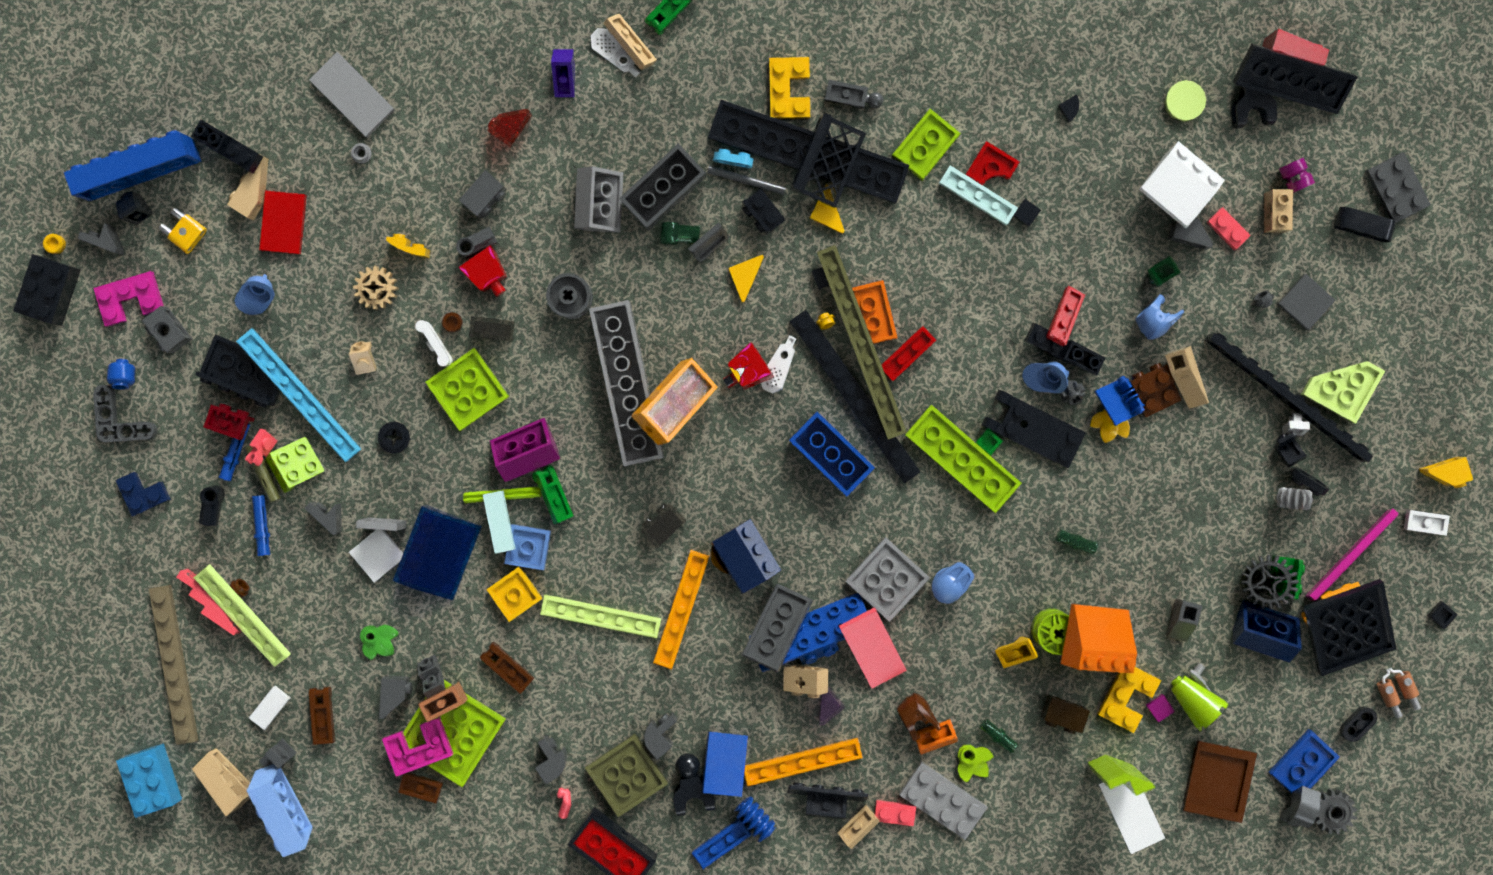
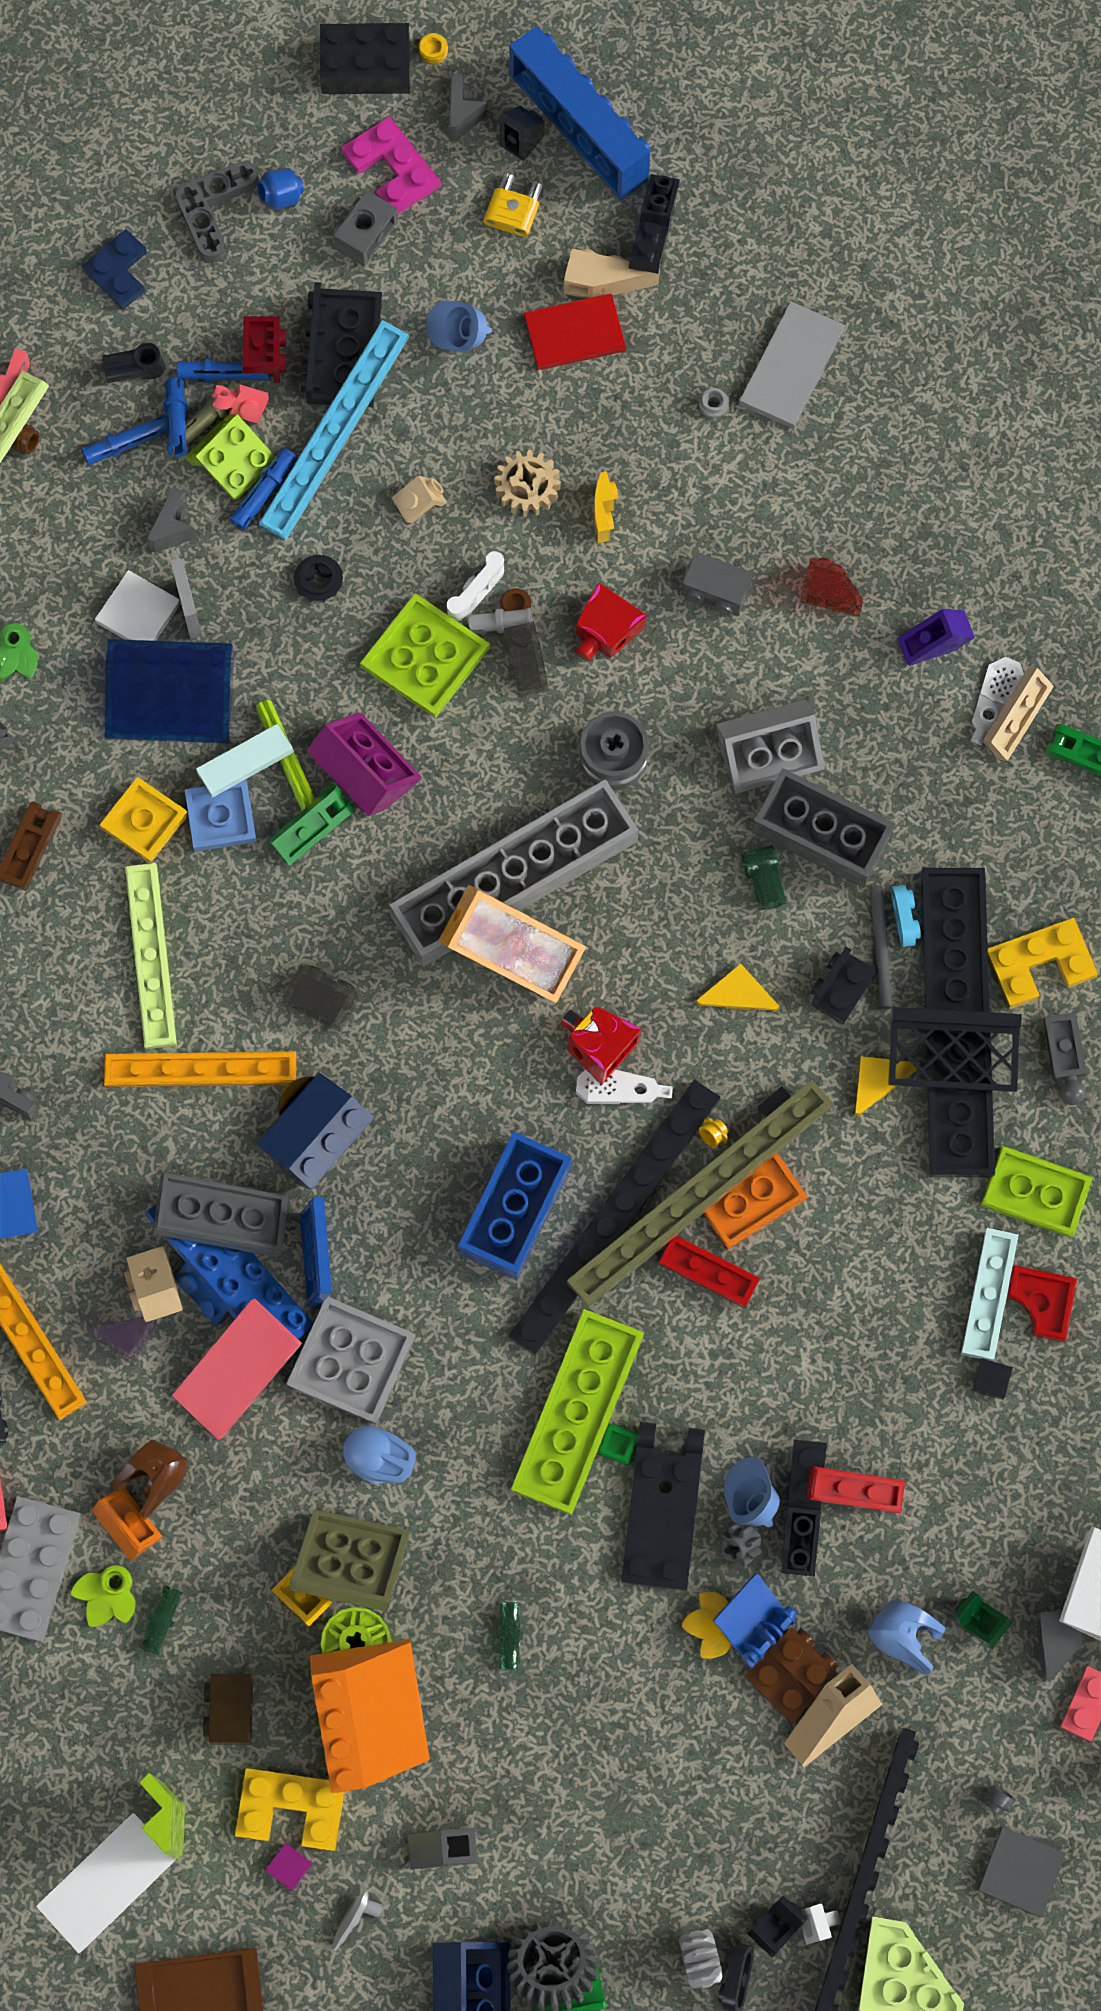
camera: 70 degrees right, 15 degrees down
(251, 489) = (175, 408): none -> blue pin
(317, 444) = (270, 479): none -> blue pin
(461, 336) = (498, 620): none -> light grey pin
(478, 242) = (645, 598): dark grey piece -> none
(709, 242) = (767, 922): dark grey tile -> none
(819, 580) = (315, 1252): none -> blue tile
(1006, 619) = (350, 1560): none -> olive plate
(1198, 702) = (319, 1918): lime cone -> none

